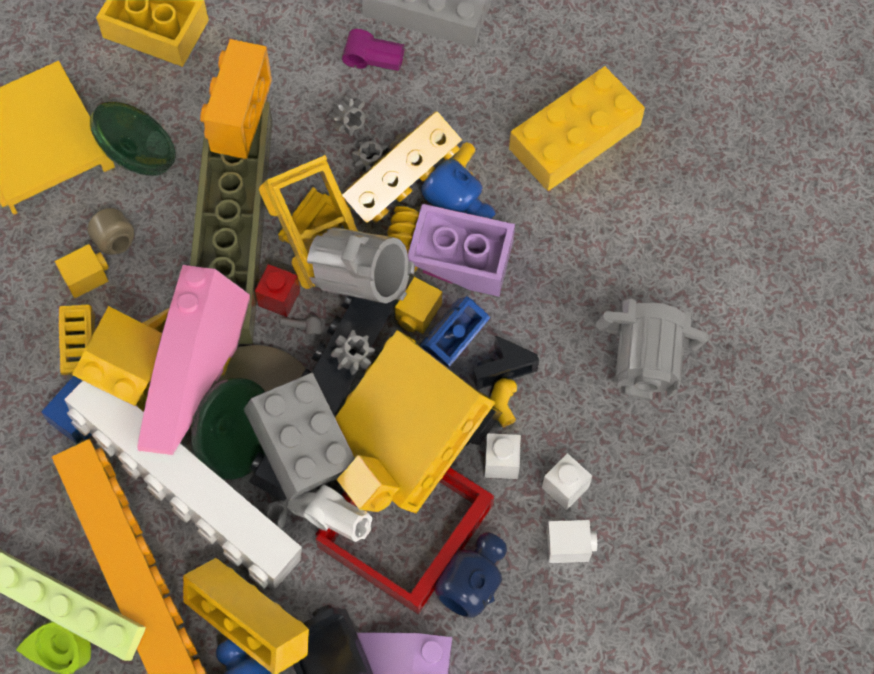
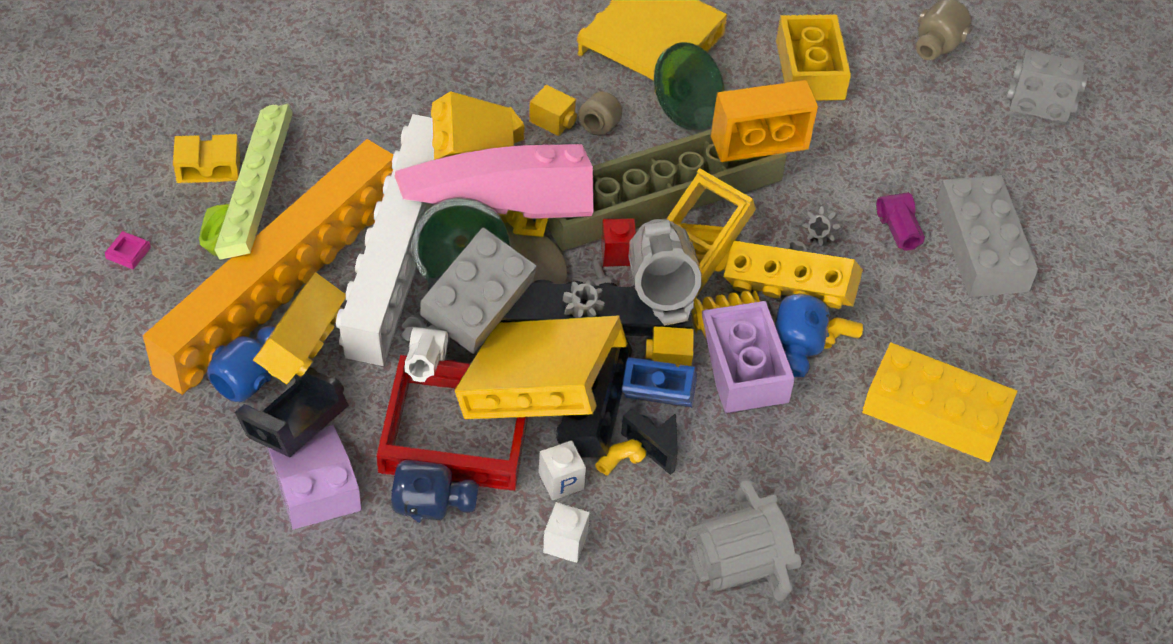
camera: 60 degrees right, 15 degrees down
(368, 484) = (462, 356): yellow brick -> none
(570, 541) = (508, 559): white brick -> none

